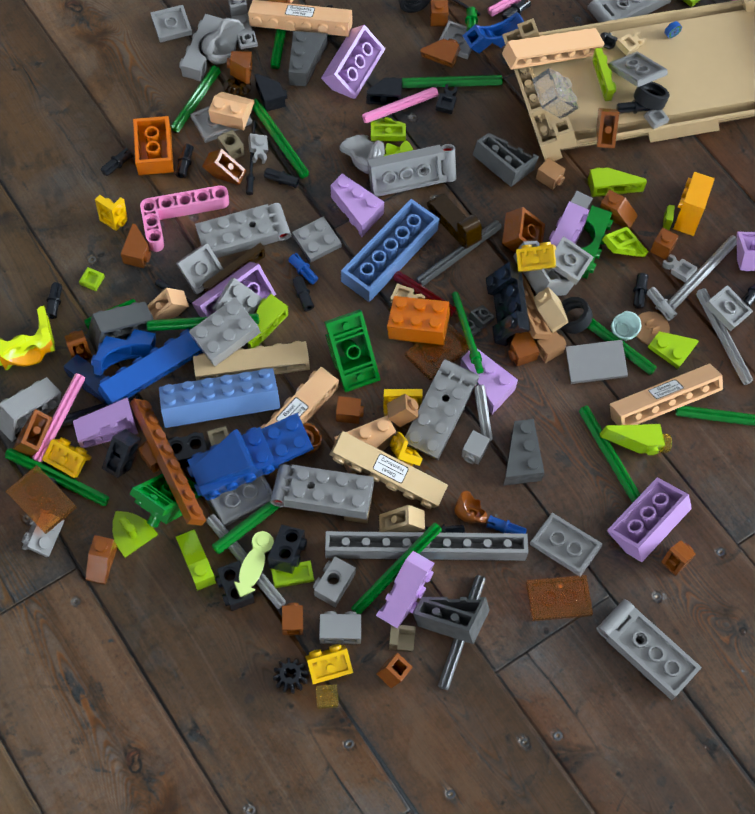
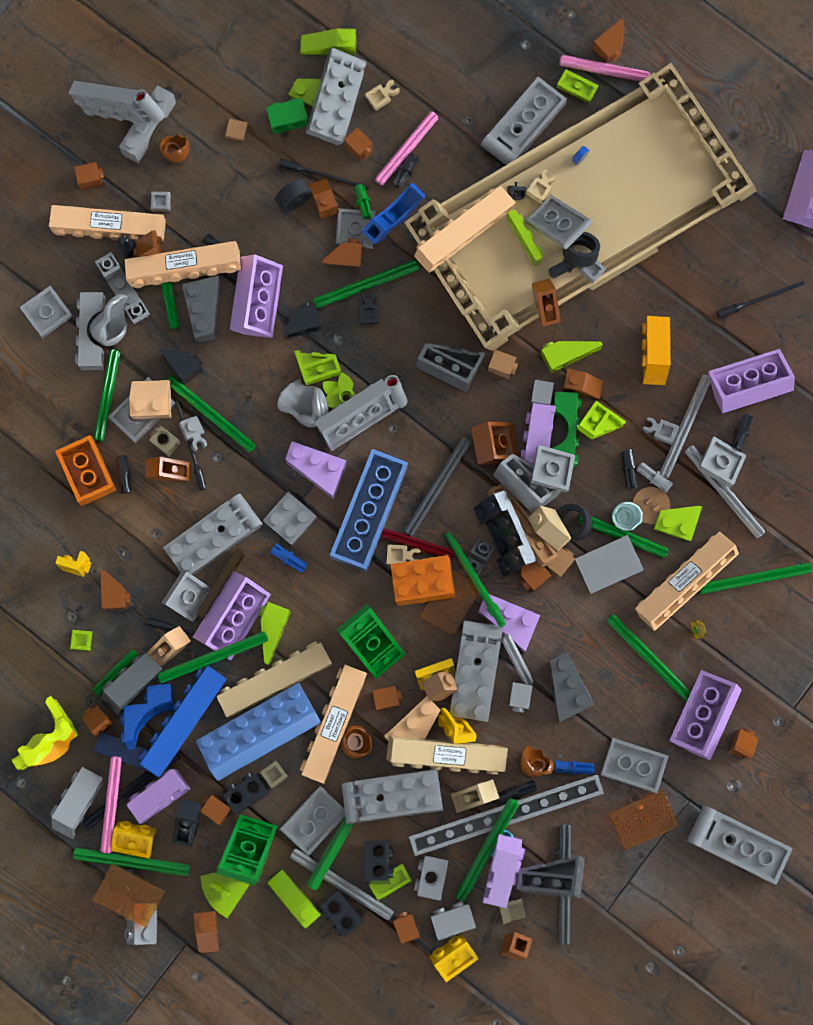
camera: 15 degrees left, 15 degrees up
(33, 433) = (93, 830): dark orange slope -> none
(54, 300) = (53, 677): black axle -> none
(116, 162) = (54, 500): black axle -> none
(168, 463) = (235, 819): dark orange plate -> none
(177, 209) = (137, 534): bright pink beam -> none
(224, 331) = (240, 666): light grey brick -> none
(231, 87) = (143, 374): dark brown gear -> none
(240, 65) = (140, 342): dark orange slope -> none
(243, 294) = (238, 622): light grey plate -> none
(247, 456) = (310, 787): blue wedge -> none
(254, 563) = (352, 888): yellowish green brick -> none
(281, 177) = (229, 460): black axle -> none
(292, 668) = (421, 974): black gear -> none
(303, 293) = (297, 585): black axle -> none
(327, 696) = (462, 989): clear yellow plate -> none
(400, 105) = (322, 333): bright pink axle -> none
(464, 229) = (434, 463): dark brown beam -> none
(536, 258) = (520, 481): yellow bracket -> none
(555, 93) = (483, 284): clear brick -> none
(638, 438) = (673, 635): lime slope -> none
(664, 243) = (639, 408): dark orange brick -> none
(668, 217) = (635, 375): lime tile -> none

